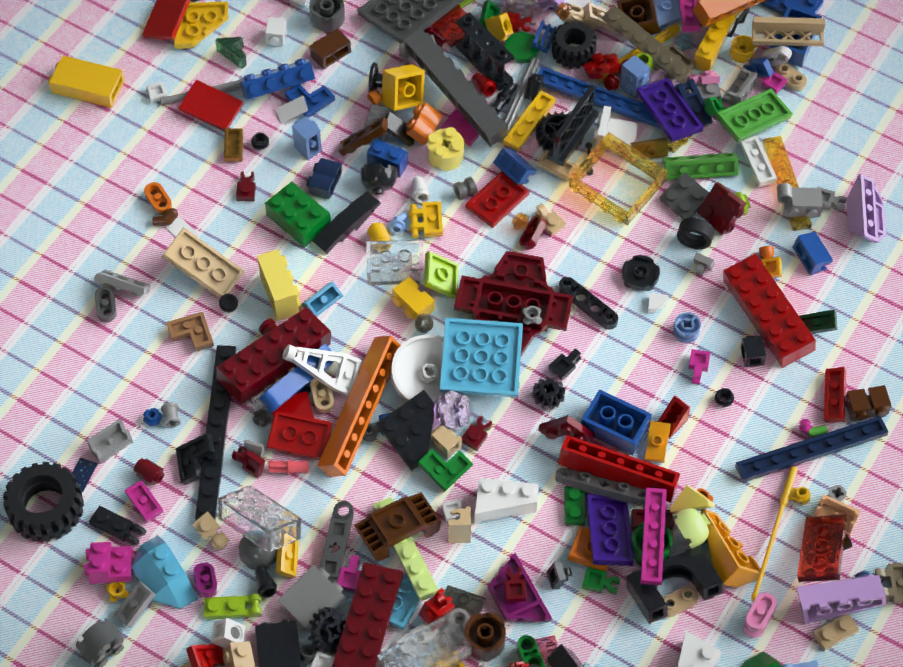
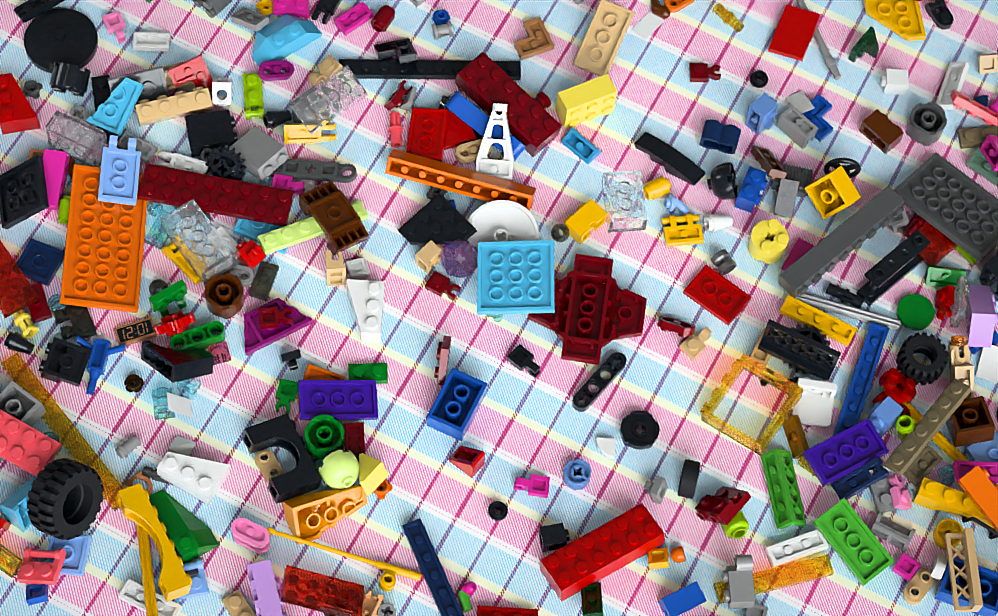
camera: 80 degrees right, 5 degrees up
(185, 159) = (728, 17): none -> clear yellow axle
(228, 303) = (568, 66): black plate -> none
(233, 144) = (751, 56): pearl gold plate -> none
(277, 79) = (832, 85): blue brick -> none
(297, 214) = (673, 114): green brick -> none
(322, 111) = (796, 126): none -> light grey hinge
(374, 97) = (818, 169): orange hinge -> none
(423, 123) = (796, 218): orange brick -> none
(441, 274) = (615, 242): lime plate -> none
(445, 473) = (394, 257): green plate -> none
(484, 85) = (856, 276): red cone -> none
(499, 26) = (934, 277): yellow brick -> none
(514, 166) = (757, 307): blue hinge -> none
(520, 221) = (689, 314): clear orange plate -> none
(532, 310) = (569, 316): light grey plate -> none
(534, 85) = (861, 320): black cone -> none
(547, 28) = (945, 335): blue tile -> none
(548, 392) = (484, 340): black gear -> none
(601, 486) = (381, 407): dark grey piece -> none
(616, 466) = (404, 407): red brick -> none
(653, 536) = (322, 430): dark pink plate -> none
(657, 442) = (440, 445): light orange plate -> none
(684, 196) = (739, 472): dark grey plate -> none
(713, 106) = (858, 499): green plate -> none
(760, 66) = (922, 549): blue plate -> none

